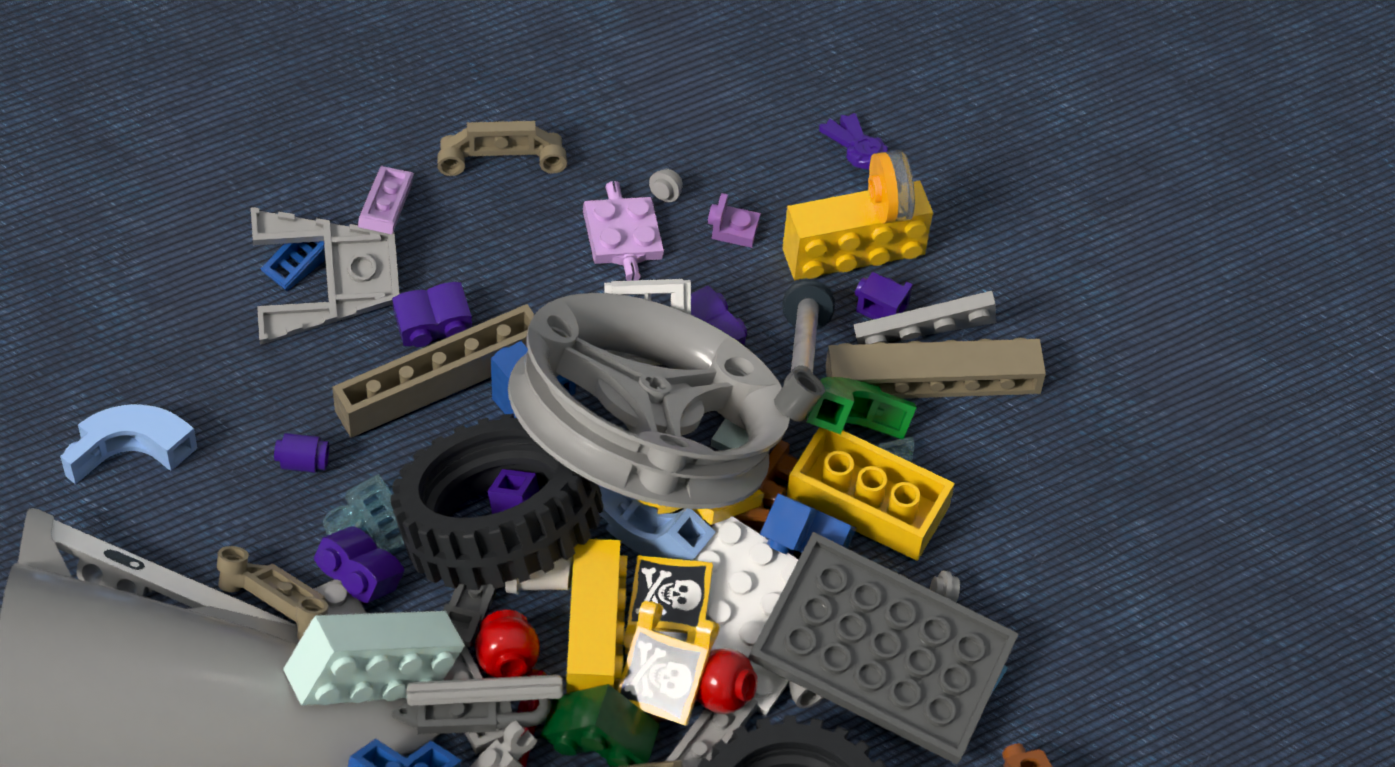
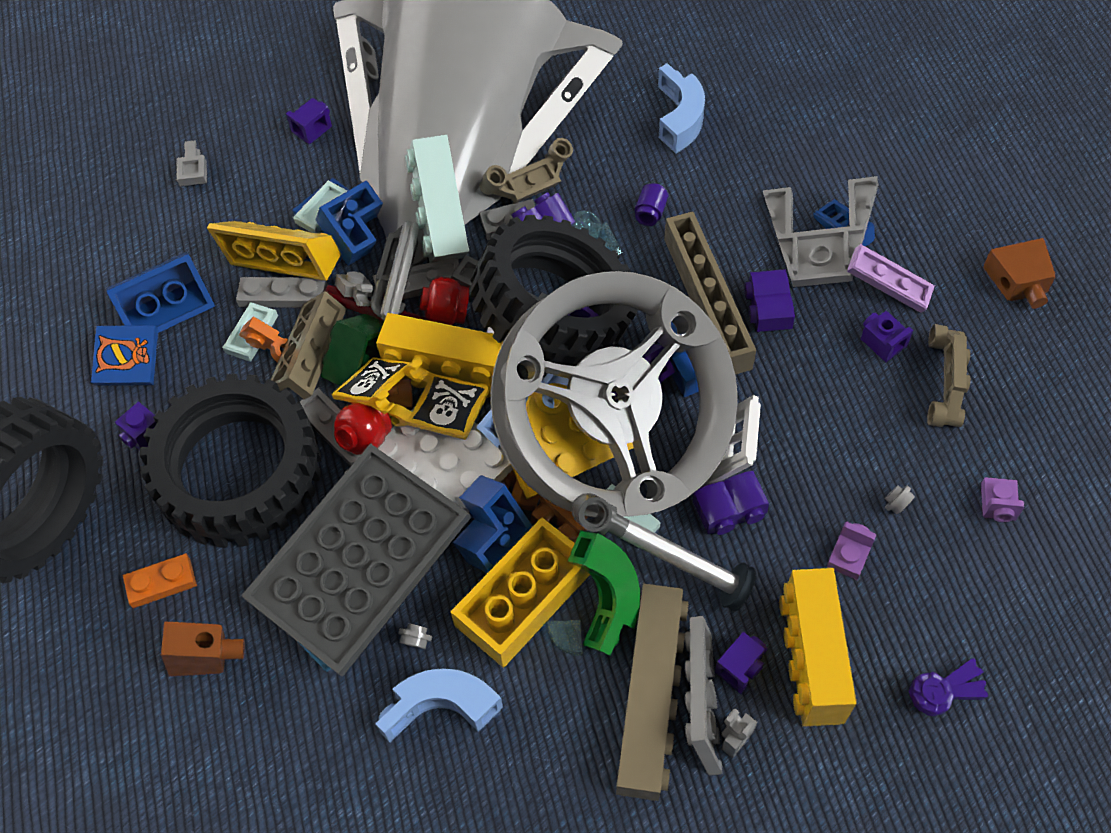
camera: 110 degrees right, 5 degrees up
(349, 88) = (1022, 271): none -> dark orange torso
(460, 205) = (885, 335): none -> dark purple brick
(623, 230) = (851, 457): lavender plate -> none
(643, 107) = (1001, 499): none -> medium lavender bracket
(891, 186) = (827, 650): piece -> none
(957, 285) = (737, 732): none -> light grey plate
(999, 560) = (439, 689): none -> light blue arch

